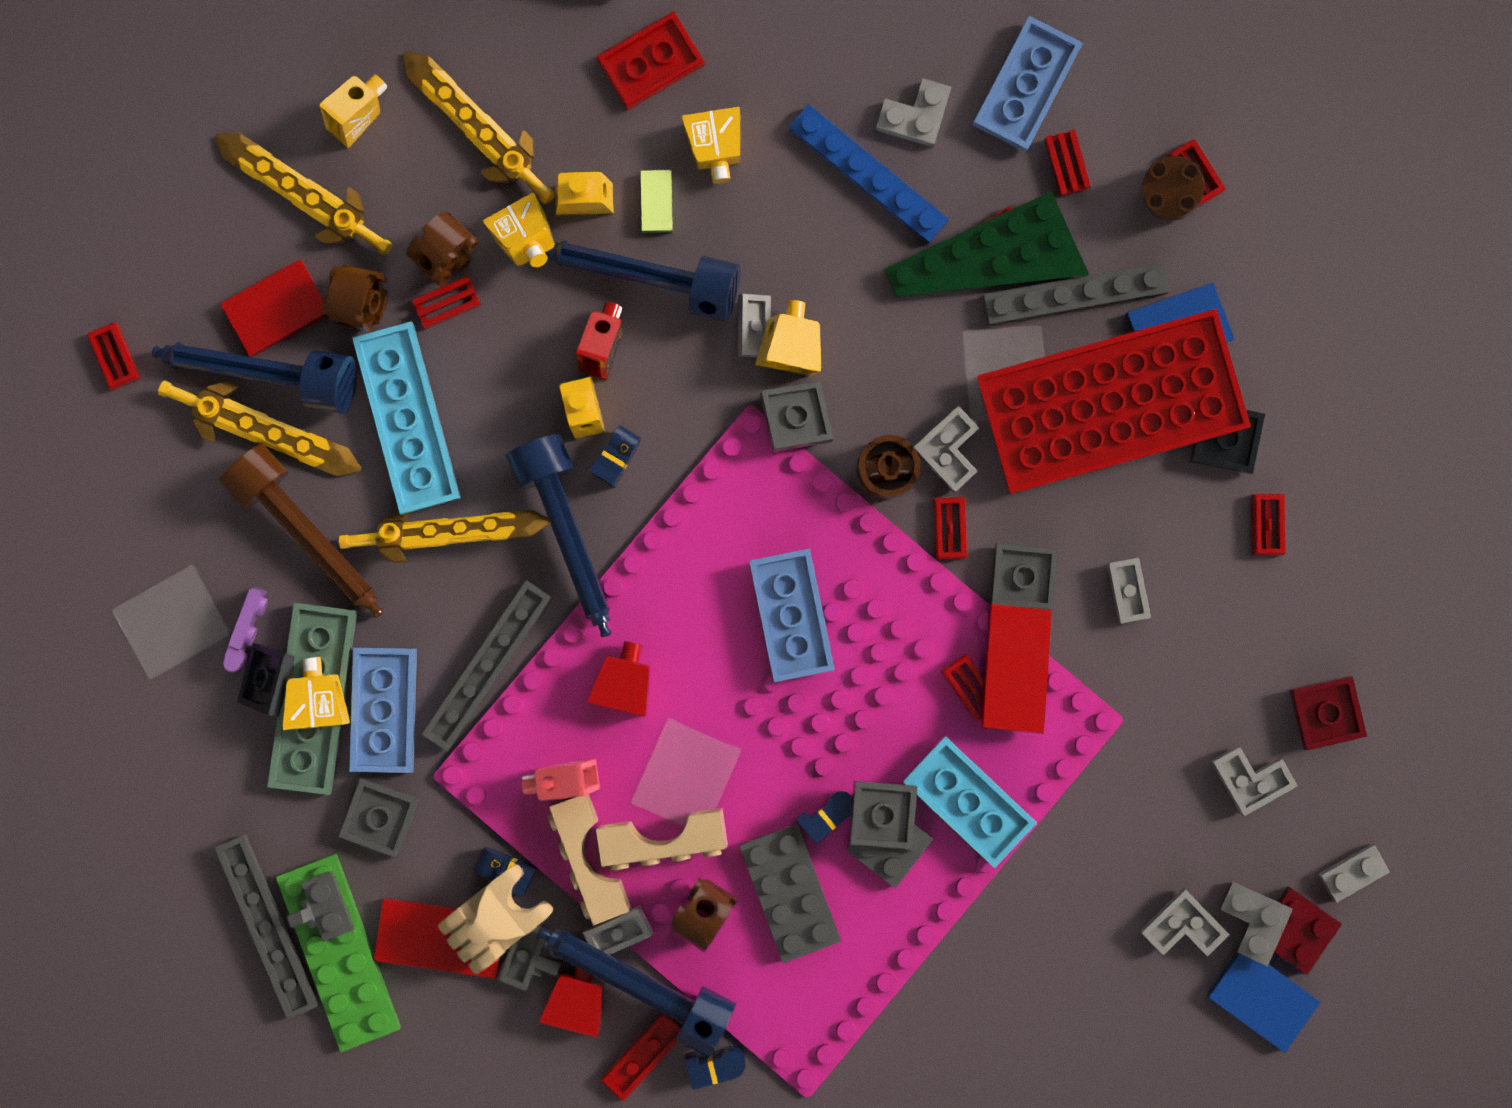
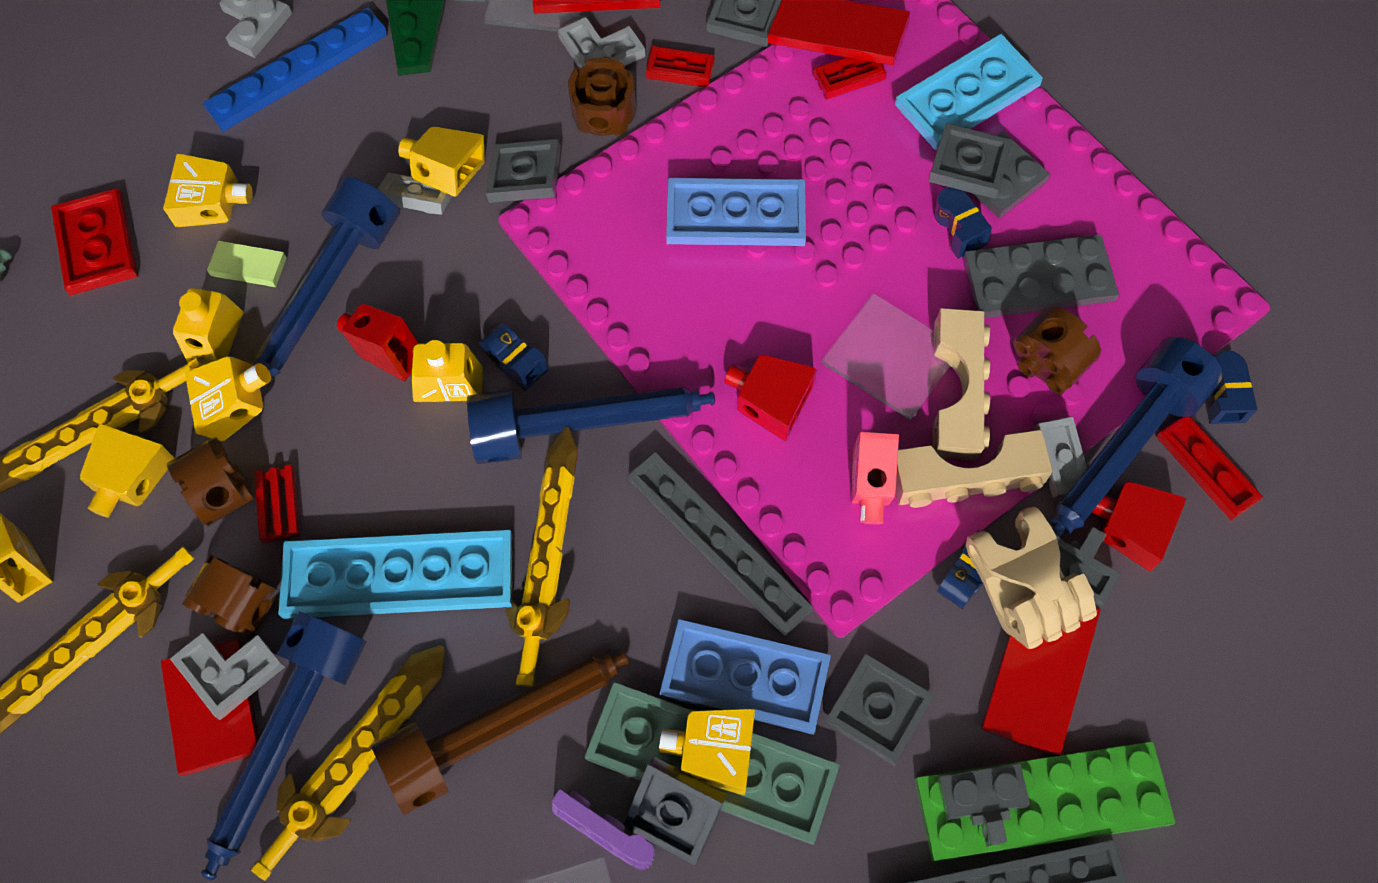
camera: 75 degrees left, 20 degrees down
(289, 312) = (224, 682): none -> light grey plate
(445, 169) = (122, 469): none -> yellow torso

